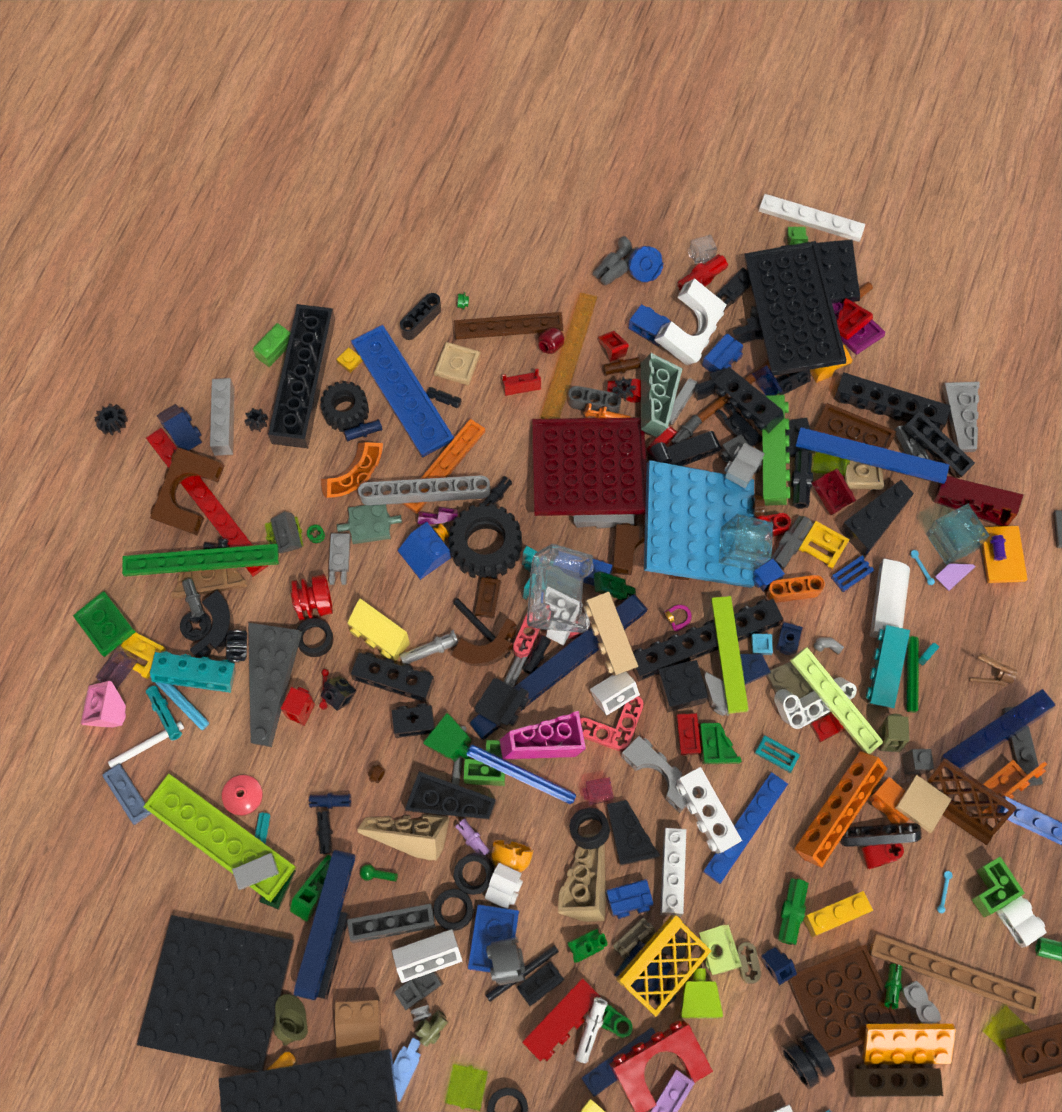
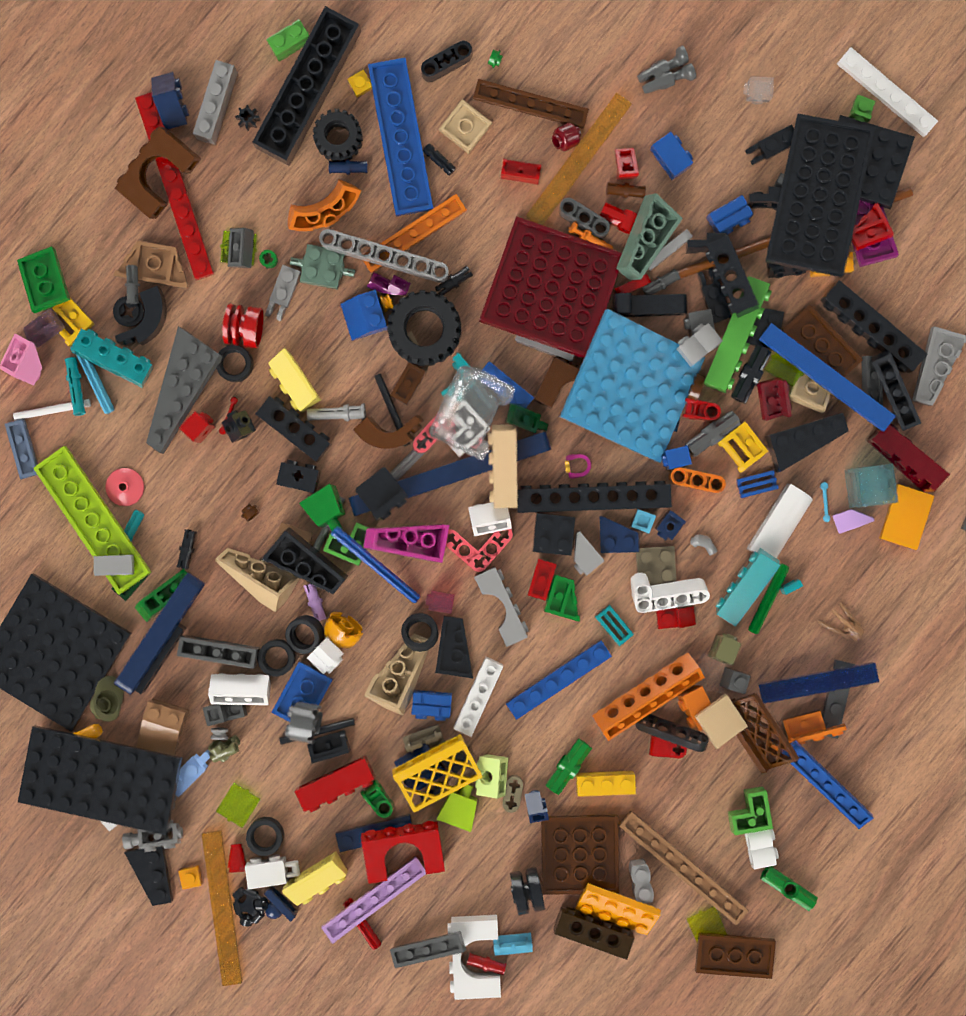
camera: 20 degrees right, 20 degrees up
(111, 419) = (103, 72): black gear -> none
(200, 560) = (150, 249): green plate -> none
(222, 543) = (174, 240): black arm -> none
(236, 645) = (159, 347): black gear -> none
(330, 800) = (200, 522): dark blue pin -> none
(368, 872) = (215, 597): green bar -> none
(536, 654) = (432, 456): black pin -> none
(587, 945) = (379, 730): green hips -> none
(594, 1021) = (360, 797): white pin -> none
(624, 394) = (613, 215): black gear -> none
(645, 263) = (694, 86): blue tile -> none
(705, 272) = (747, 118): red piece -> none
(708, 311) = (735, 163): white arch -> none
(729, 654) = (607, 523): lime tile -> none
(729, 835) = (536, 687): white brick -> none
(746, 542) = (666, 424): clear light blue brick -> none
(767, 381) = (759, 263): clear blue piece -> none
(836, 701) = (684, 603): yellowish green plate -> none
(893, 986) = (626, 859): green pin -> none
(947, 875) = (716, 784): medium azure hinge -> none
(998, 547) = (904, 511): dark purple pin -> none

